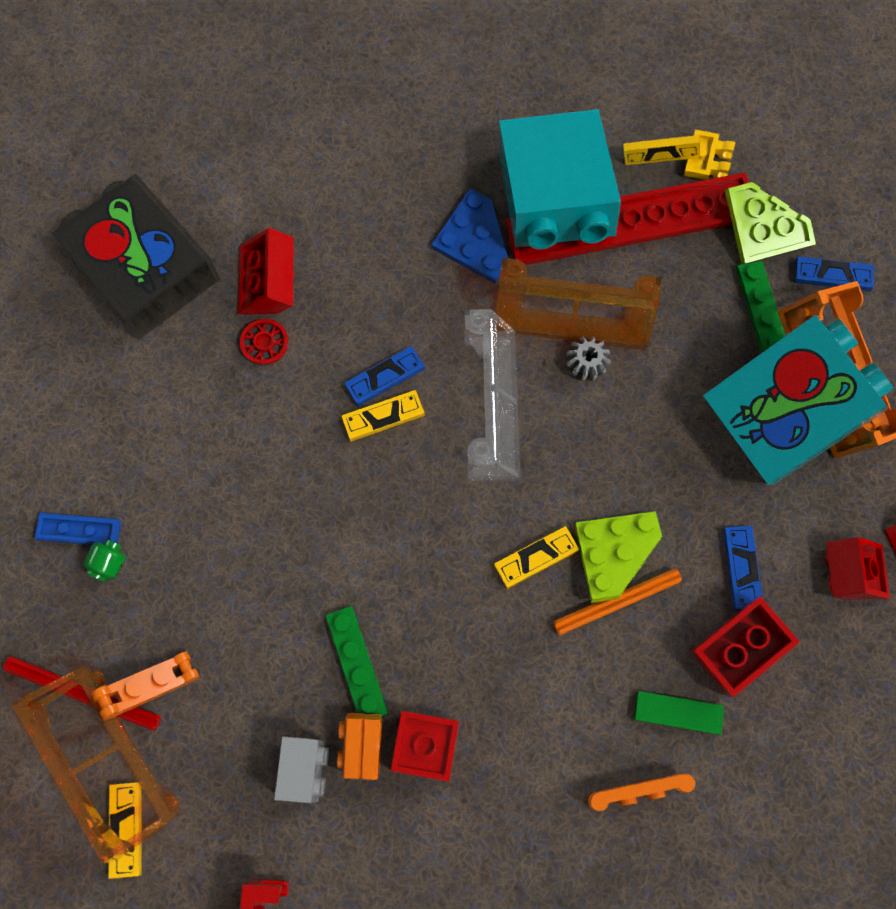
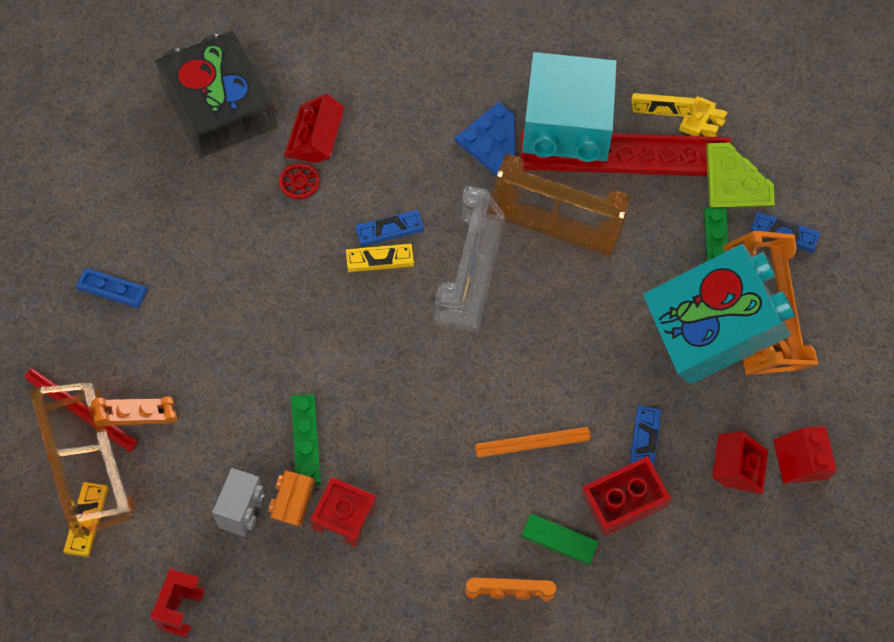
camera: 10 degrees right, 10 degrees down
(104, 560) = (126, 313): green head -> none
(536, 557) = (475, 393): yellow tile -> none
(578, 355) = (565, 256): light grey gear -> none
(615, 551) = (541, 402): lime plate -> none

